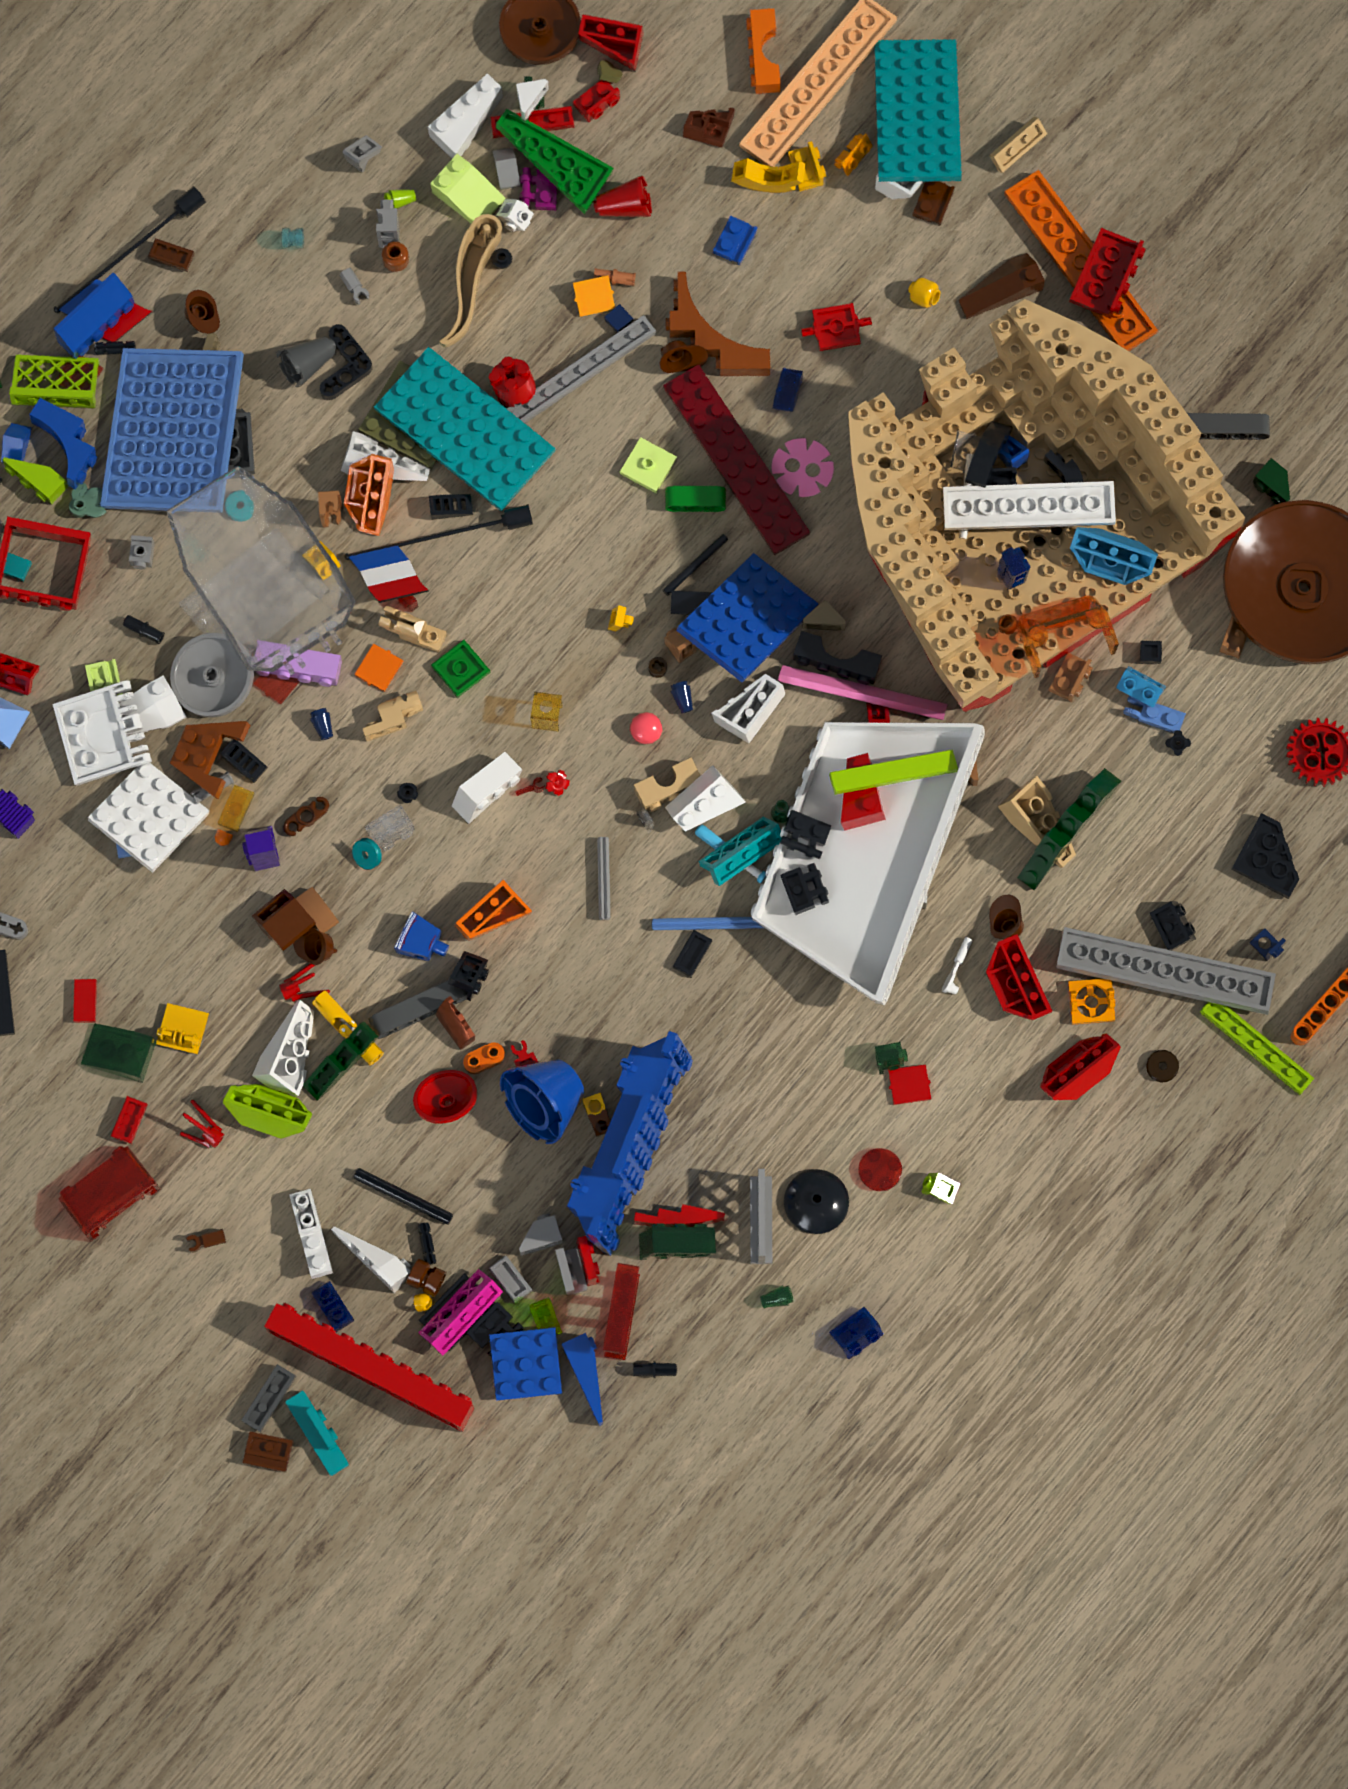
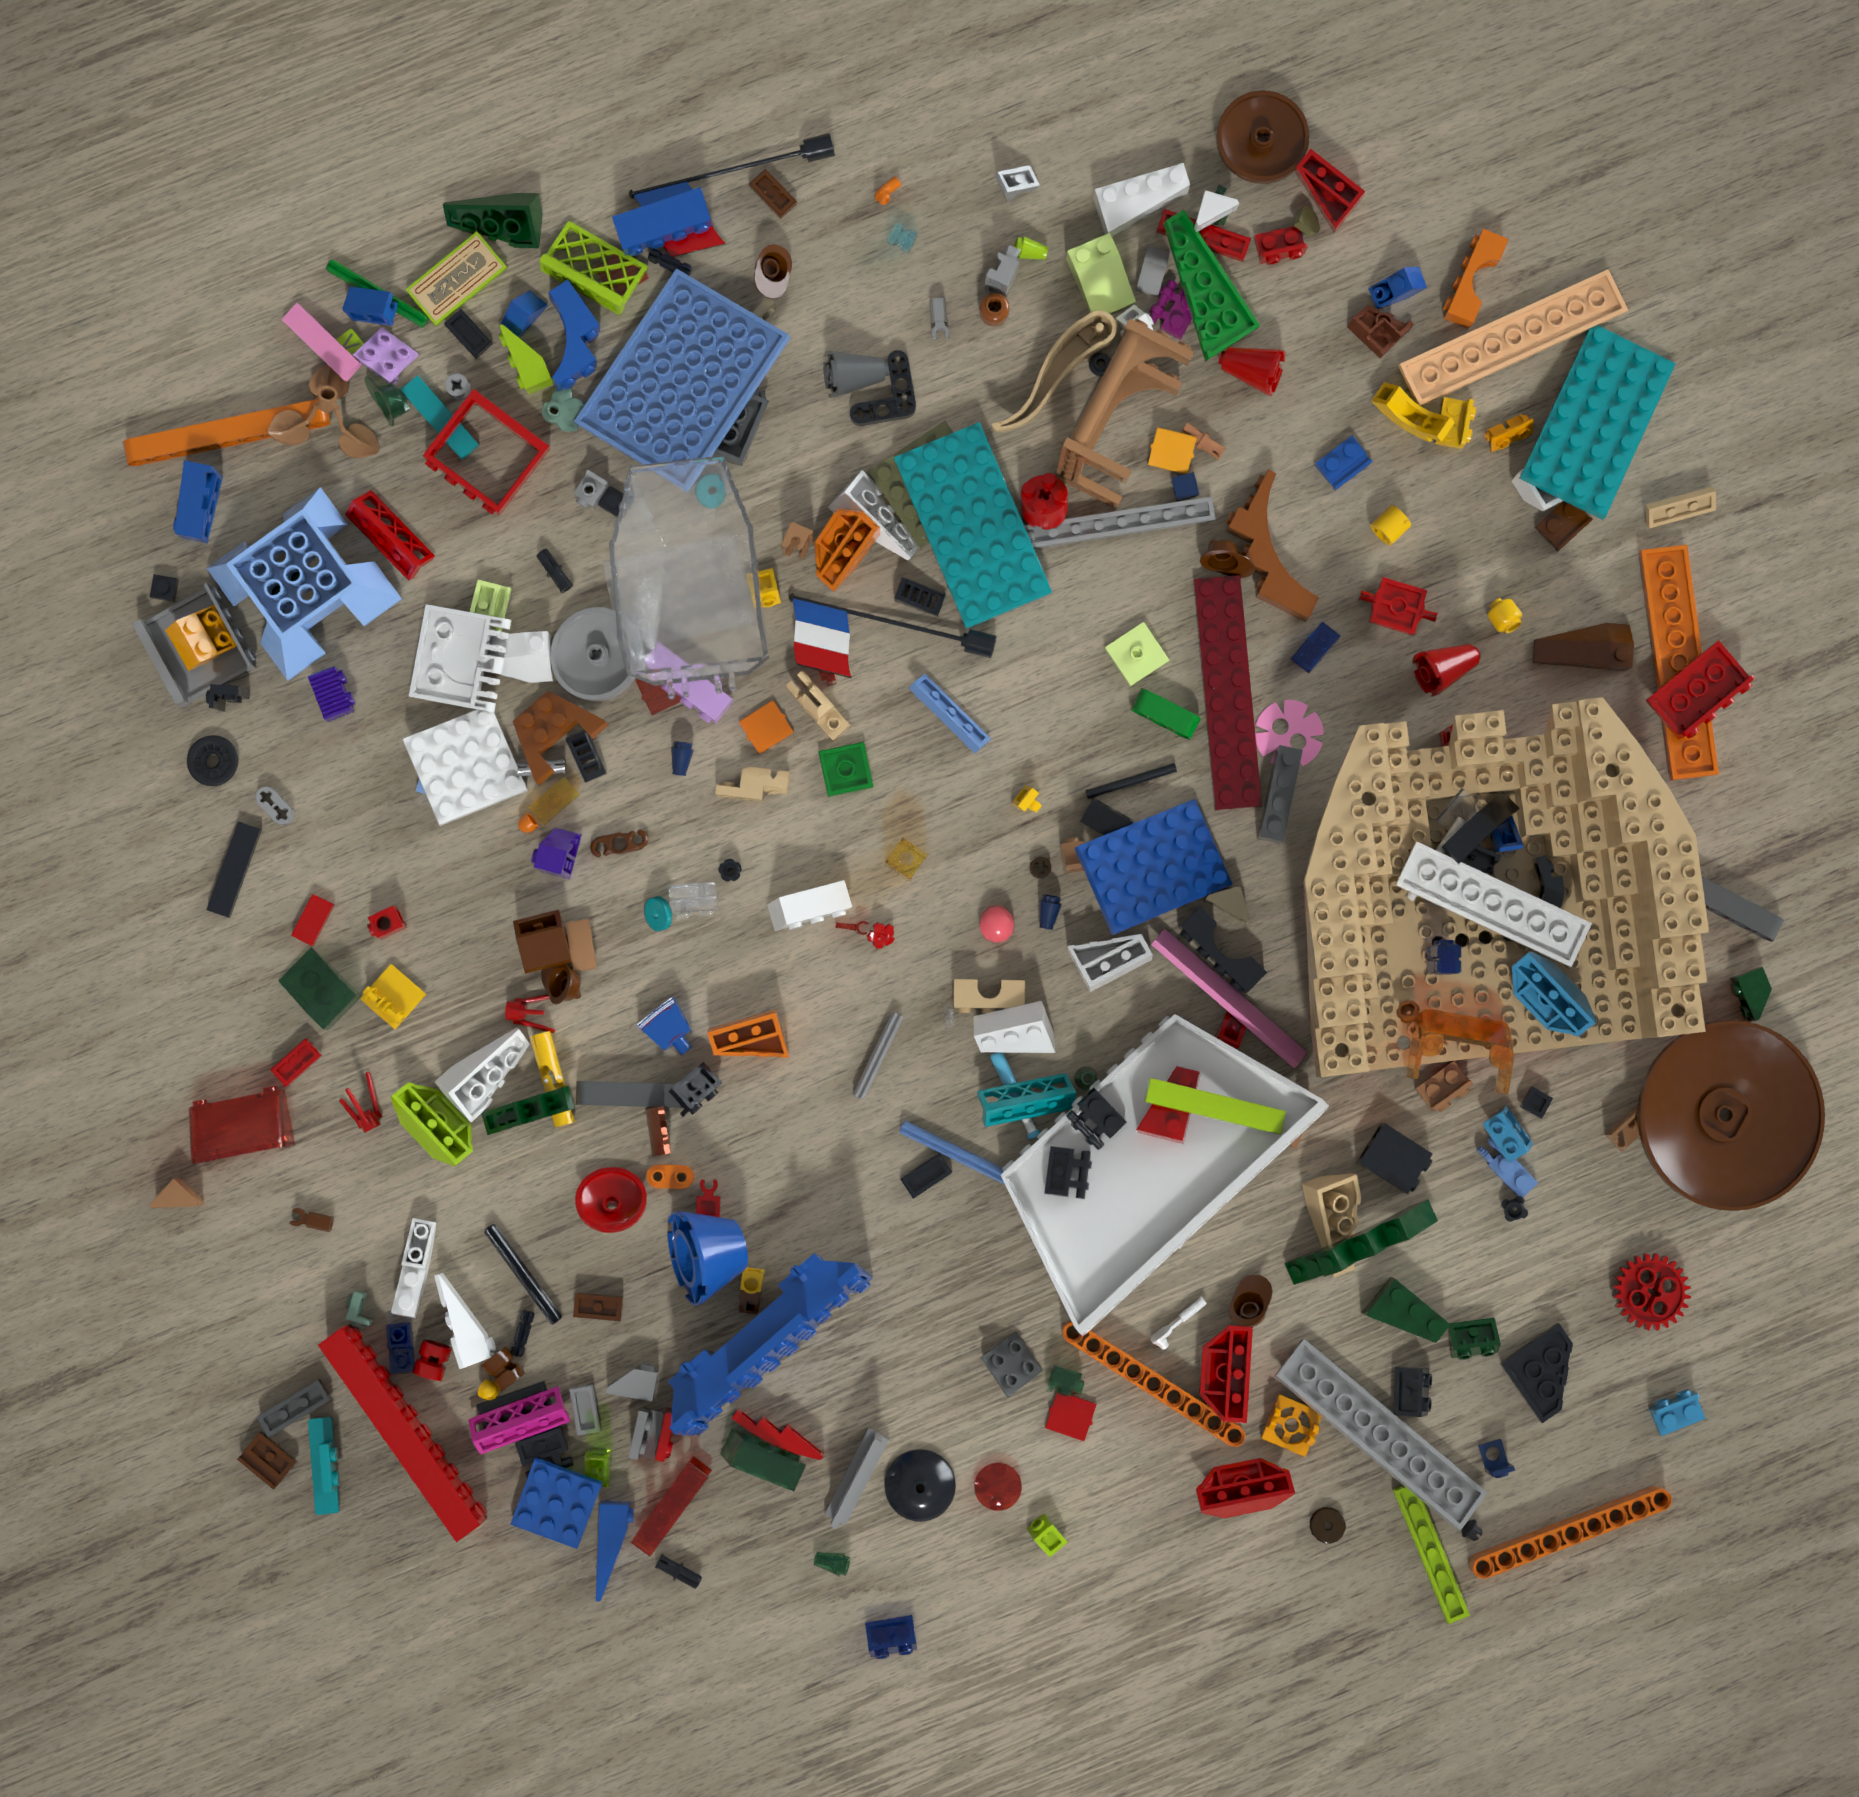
camera: 20 degrees right, 10 degrees up
(83, 1276) = (177, 1194): none -> medium nougat slope
(147, 962) = (396, 922): none -> red brick
(164, 552) = (611, 501): none -> black plate
(260, 209) = (882, 194): none -> orange arm
(276, 1288) = (355, 1305): none -> sand green bracket
(367, 1307) = (430, 1368): none -> red wheel
(478, 1190) = (598, 1306): none -> reddish brown plate
(496, 575) = (949, 713): none -> medium blue plate
(525, 260) = (1122, 378): none -> medium nougat arch
(707, 86) = (1397, 287): none -> blue slope
(797, 268) = (1390, 525): none -> yellow piece
(819, 515) = (1279, 794): none -> dark grey brick
(839, 1066) = (1011, 1364): none -> dark grey hinge
(896, 354) = (1444, 666): none -> red cone
(951, 1027) = (1160, 1393): none -> orange beam
(1062, 749) = (1395, 1158): none -> black panel
(1135, 864) = (1404, 1310): none -> dark green wedge
(1200, 859) = (1474, 1338): none -> dark green bracket
(1279, 1010) = (1471, 1530): none -> black piece

